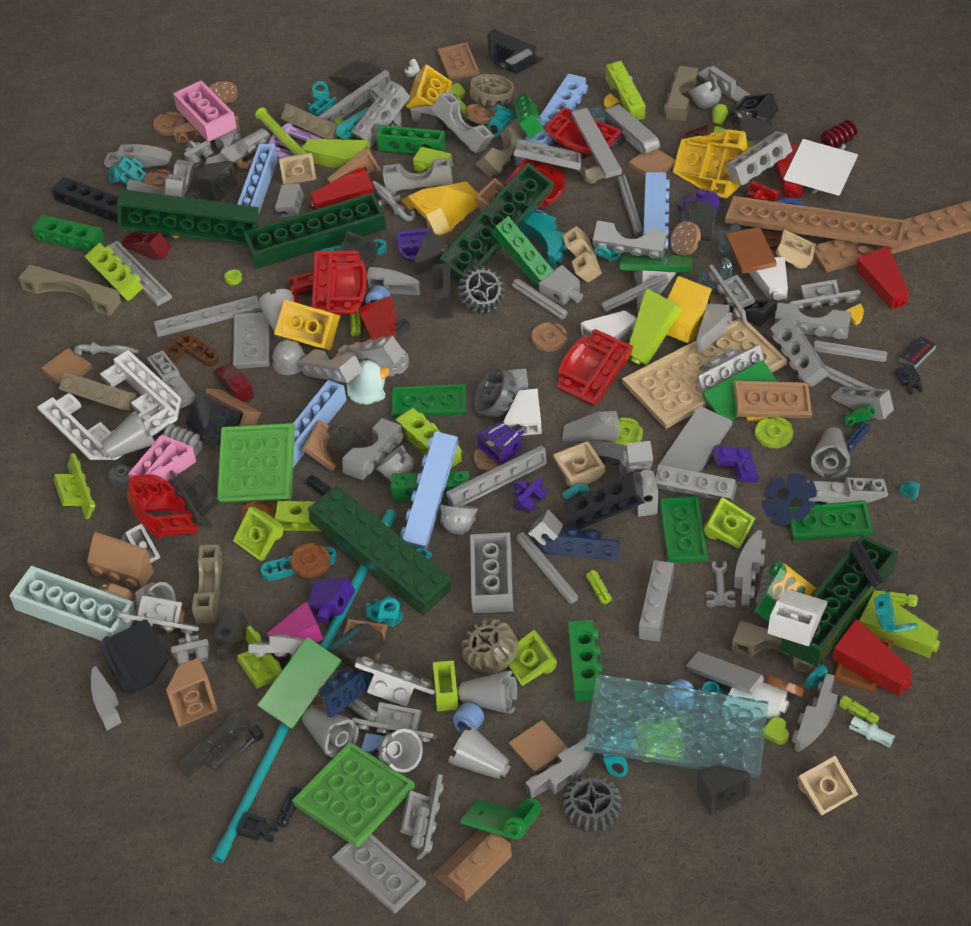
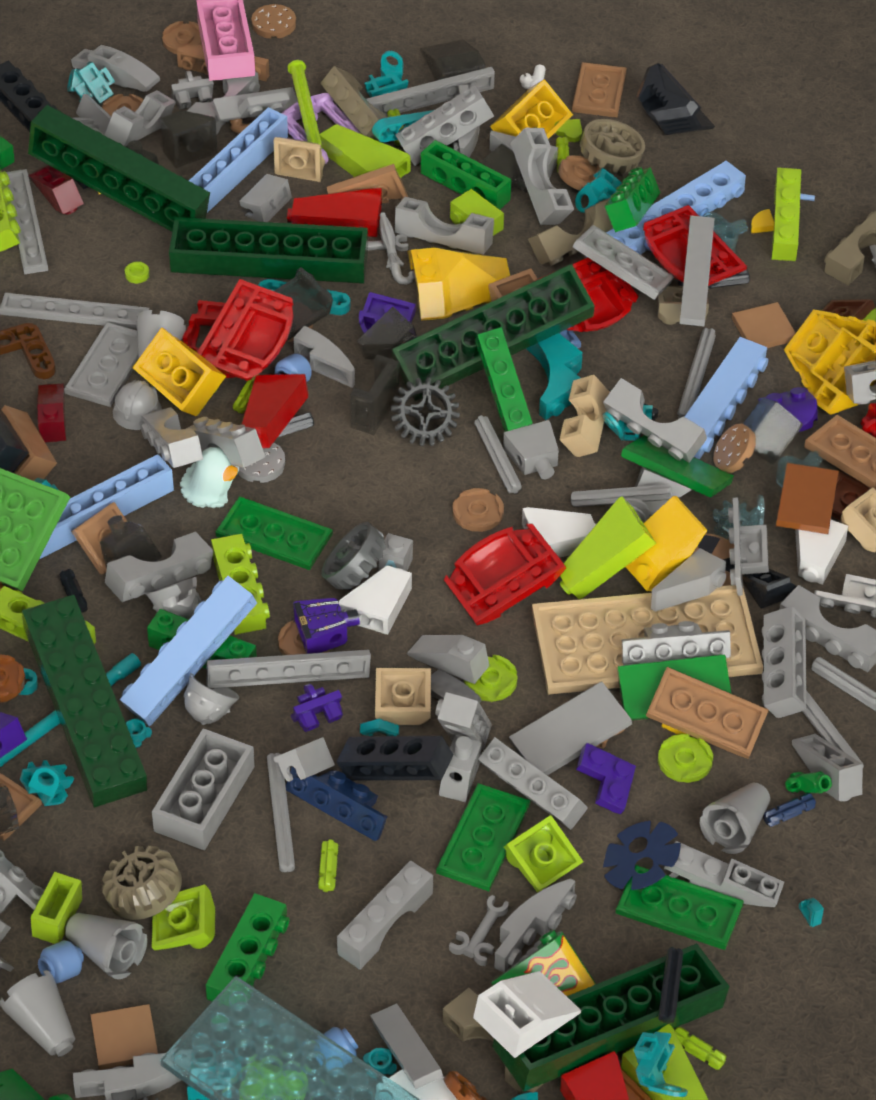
camera: 20 degrees right, 0 degrees up
(632, 129) = (762, 269): light grey beam -> none

